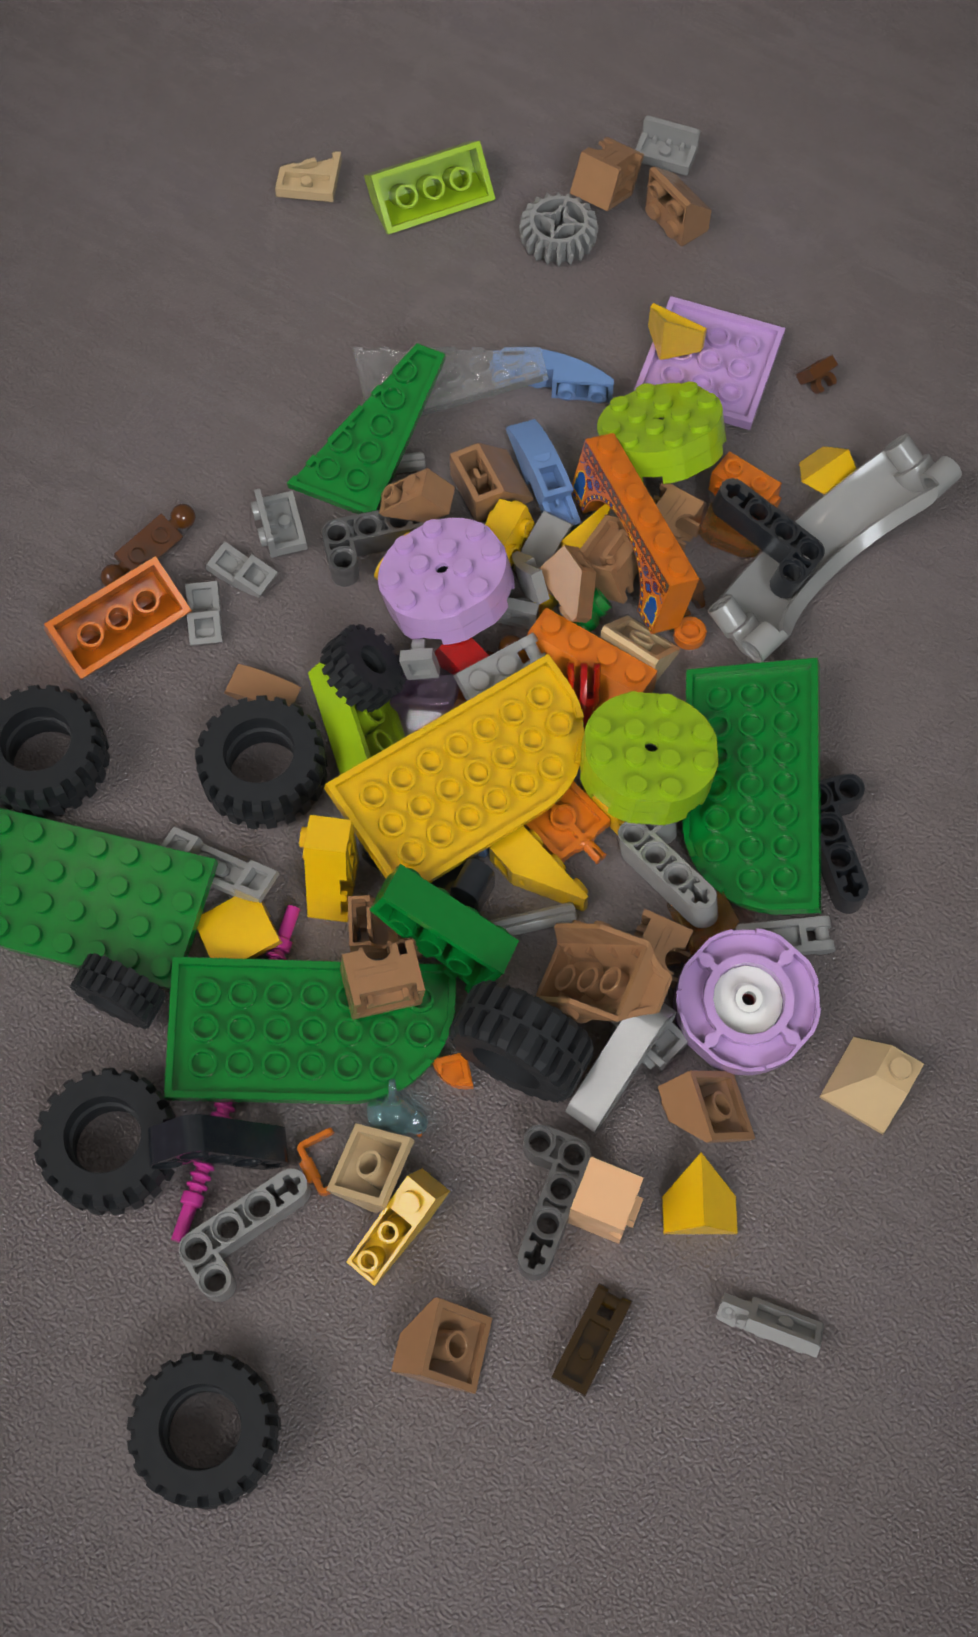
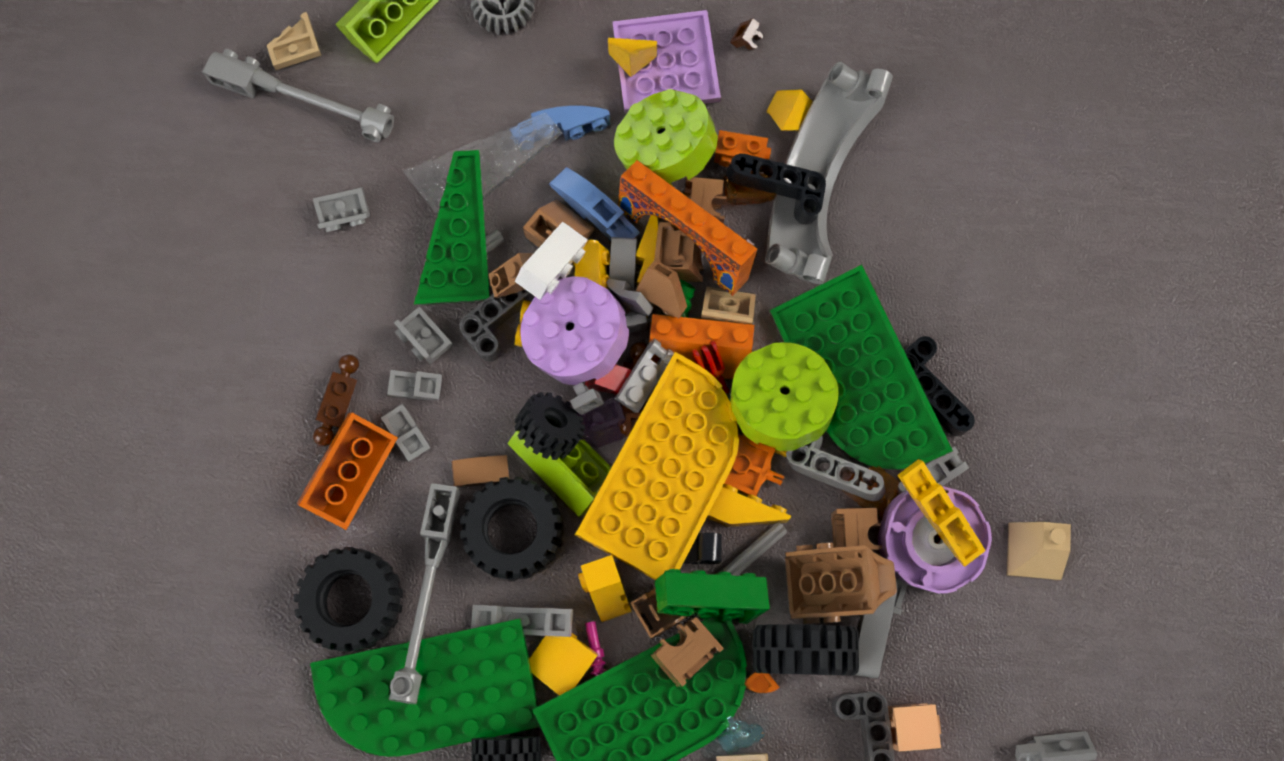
camera: 25 degrees left, 10 degrees up
(178, 725) = (437, 532): none -> light grey bar
(243, 190) = (248, 78): none -> light grey bar
(266, 358) = (341, 208): none -> light grey bracket
(458, 491) = (552, 261): none -> white brick
(690, 633) = (757, 280): orange tile -> none
(699, 1202) = (969, 693): yellow slope -> none
(707, 1106) = (943, 625): medium nougat slope -> none
(766, 966) = (941, 512): none -> yellow slope

